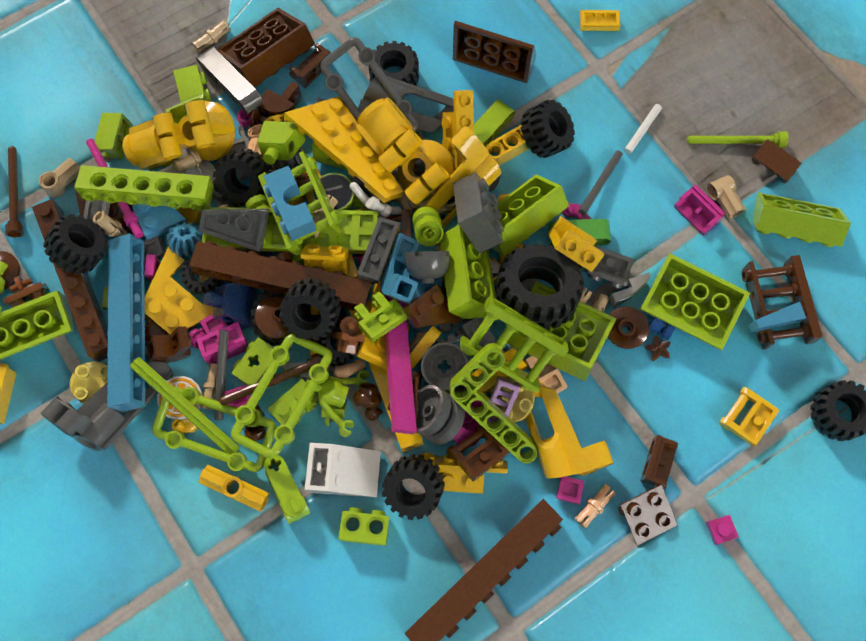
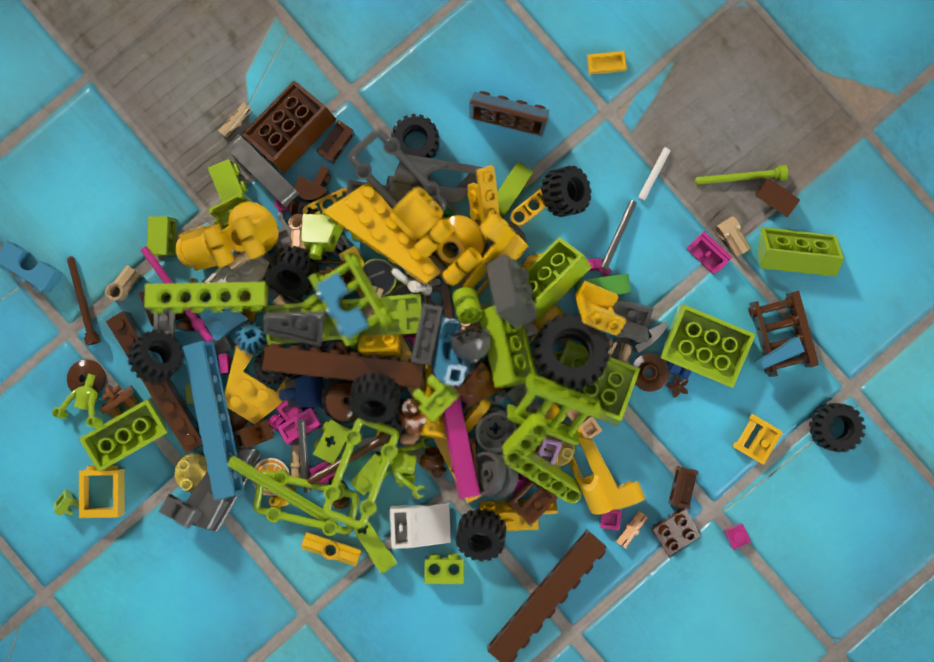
camera: 10 degrees left, 15 degrees up
(111, 227) = (177, 332): tan pin -> none

